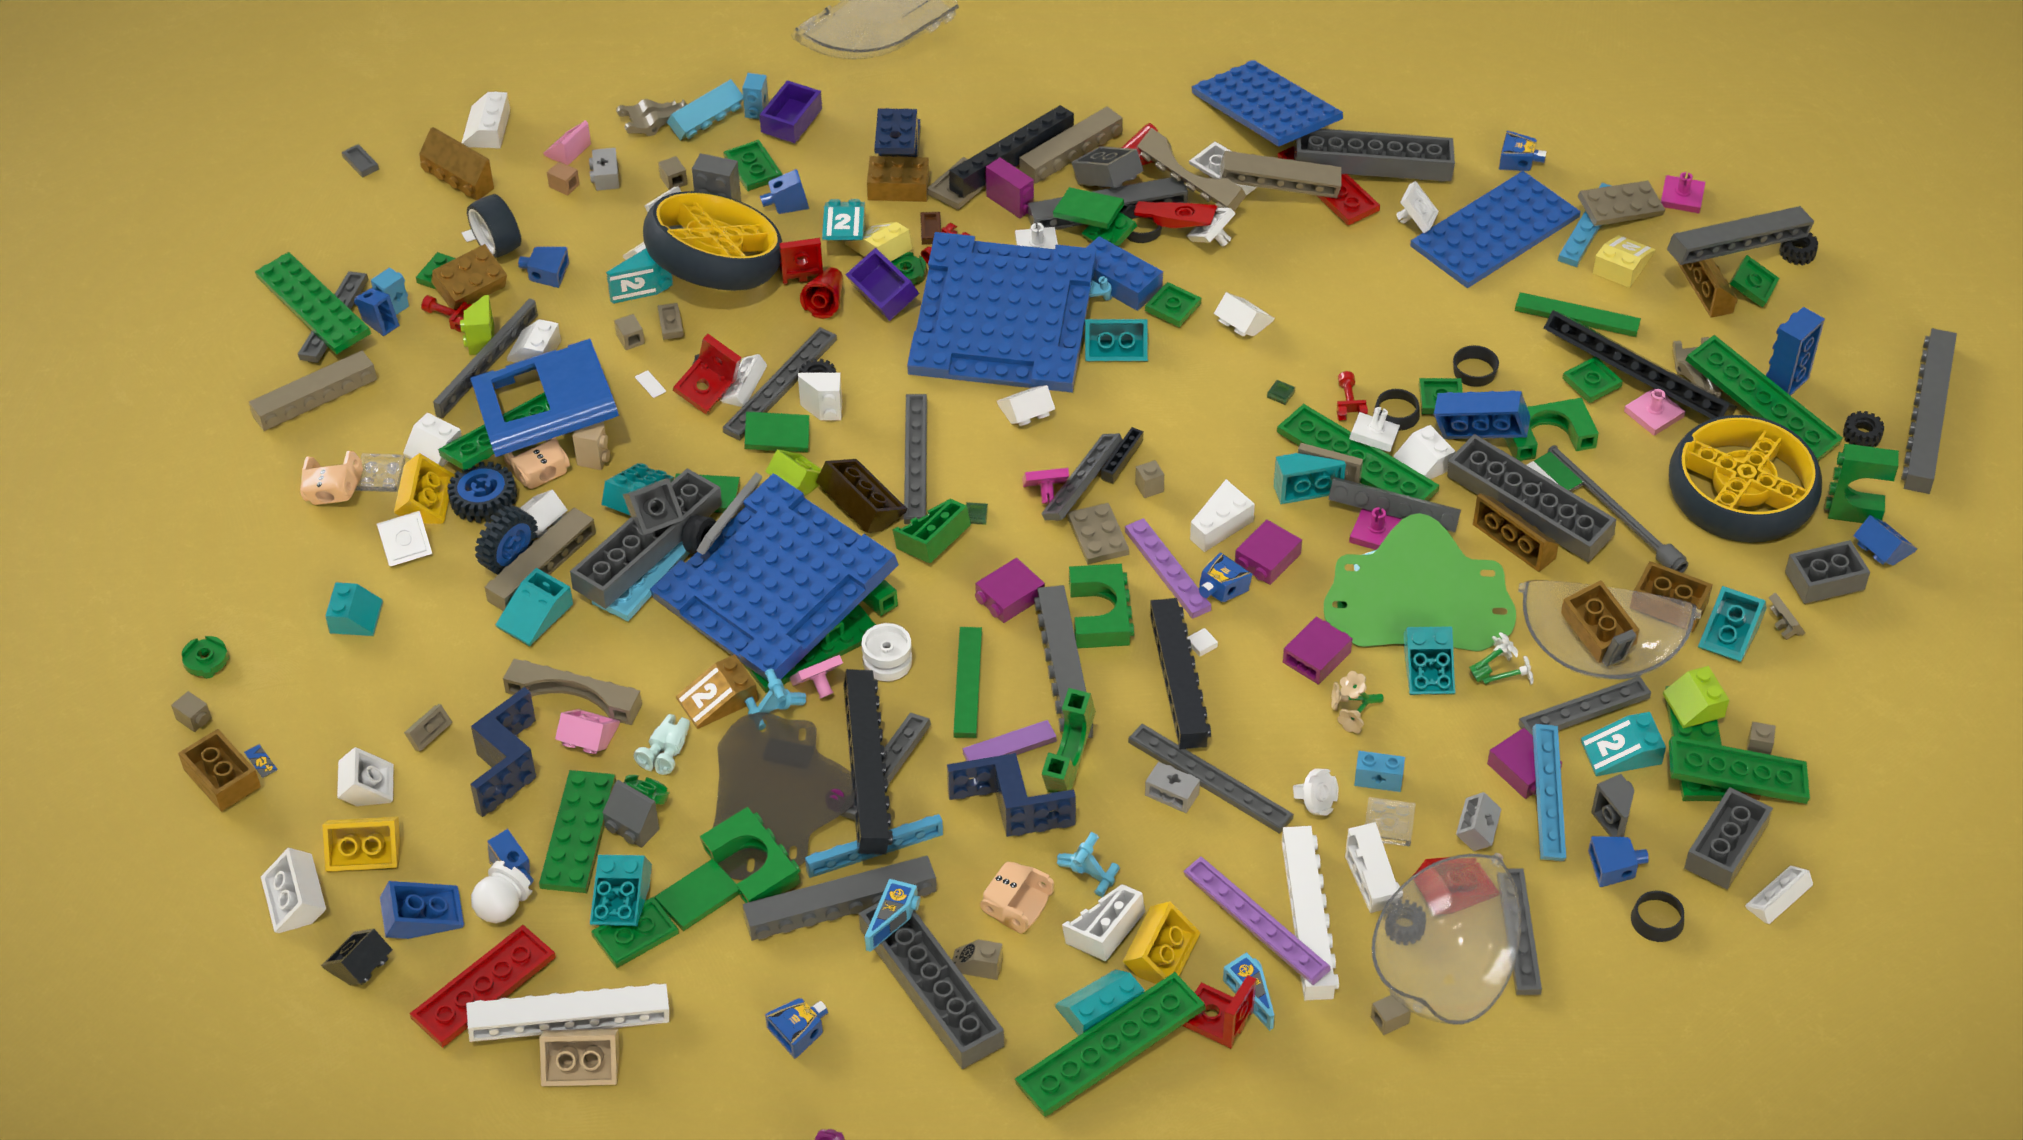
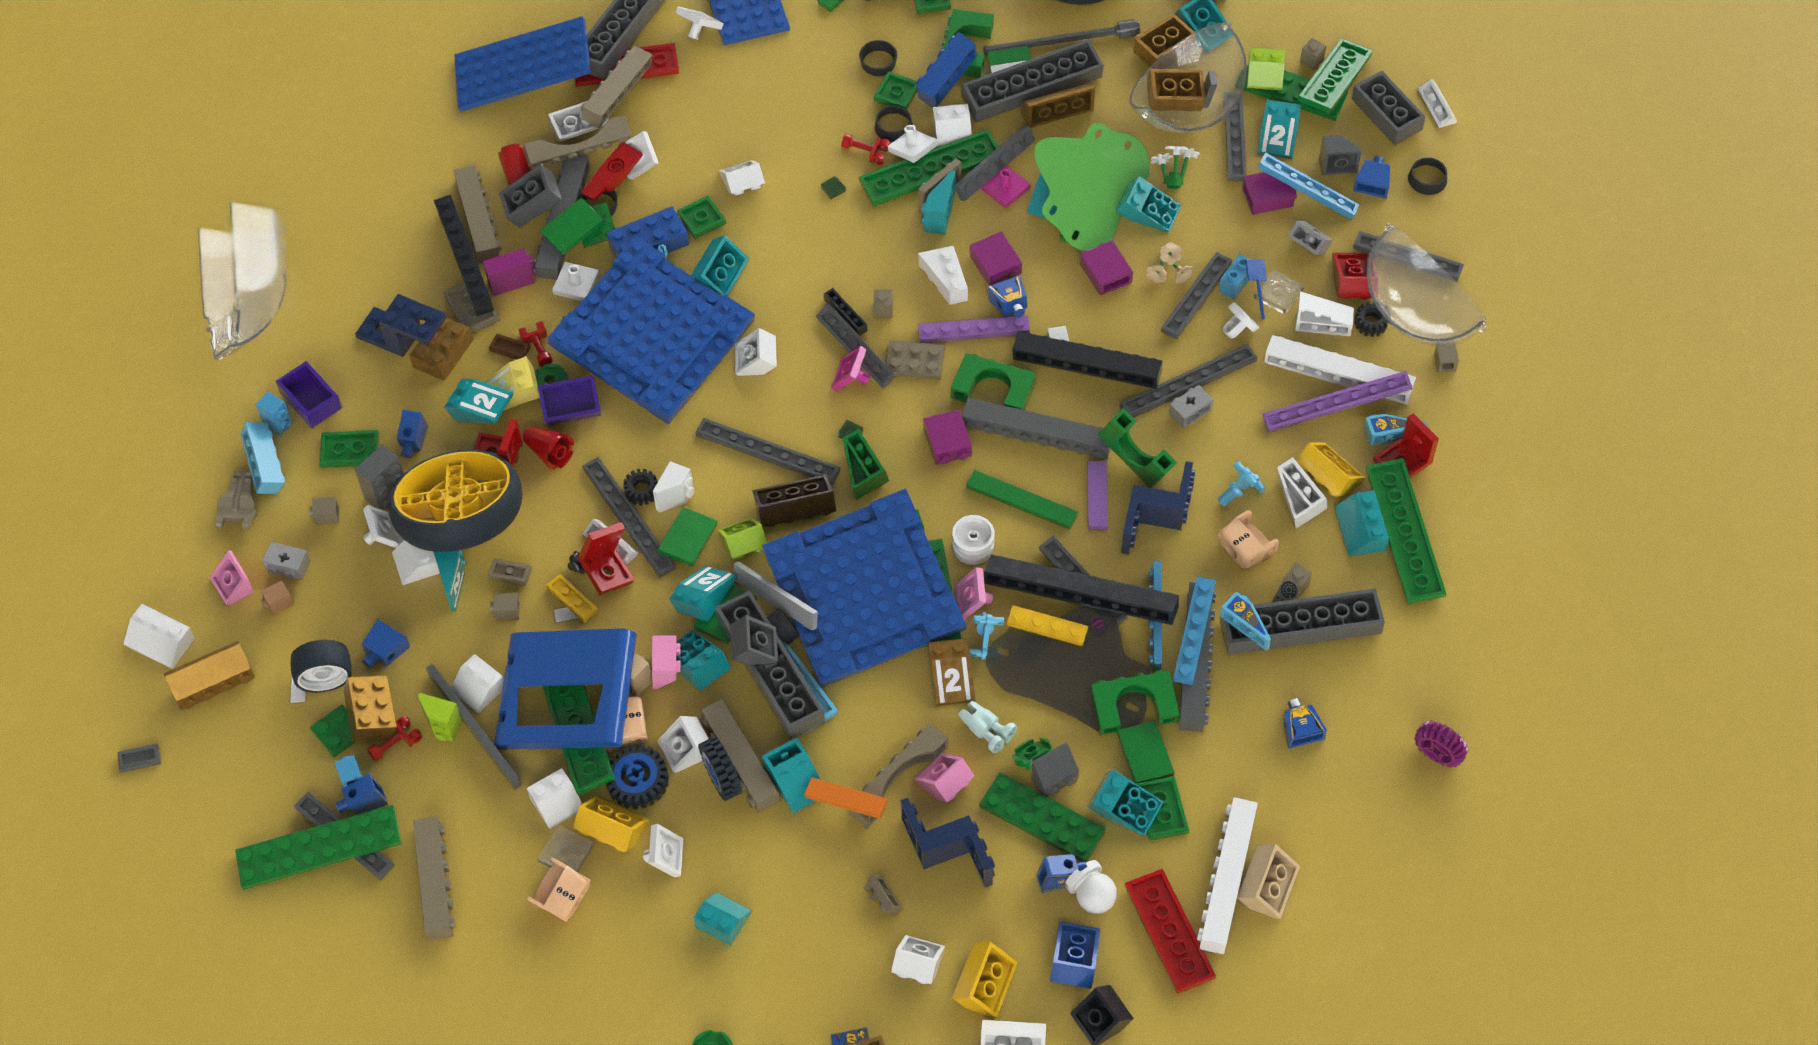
camera: 65 degrees left, 10 degrees up
(518, 651) = (846, 798): none -> orange tile
(614, 455) = (664, 660): none -> bright pink slope
(664, 376) = (572, 598): none -> yellow tile
(716, 461) = (702, 592): none -> teal slope
(808, 749) = (1047, 625): none -> yellow plate
(862, 877) = (1194, 630): none -> dark azure plate
(1326, 743) = (1196, 295): none -> dark grey plate
(1392, 782) = (1257, 272): none -> piece

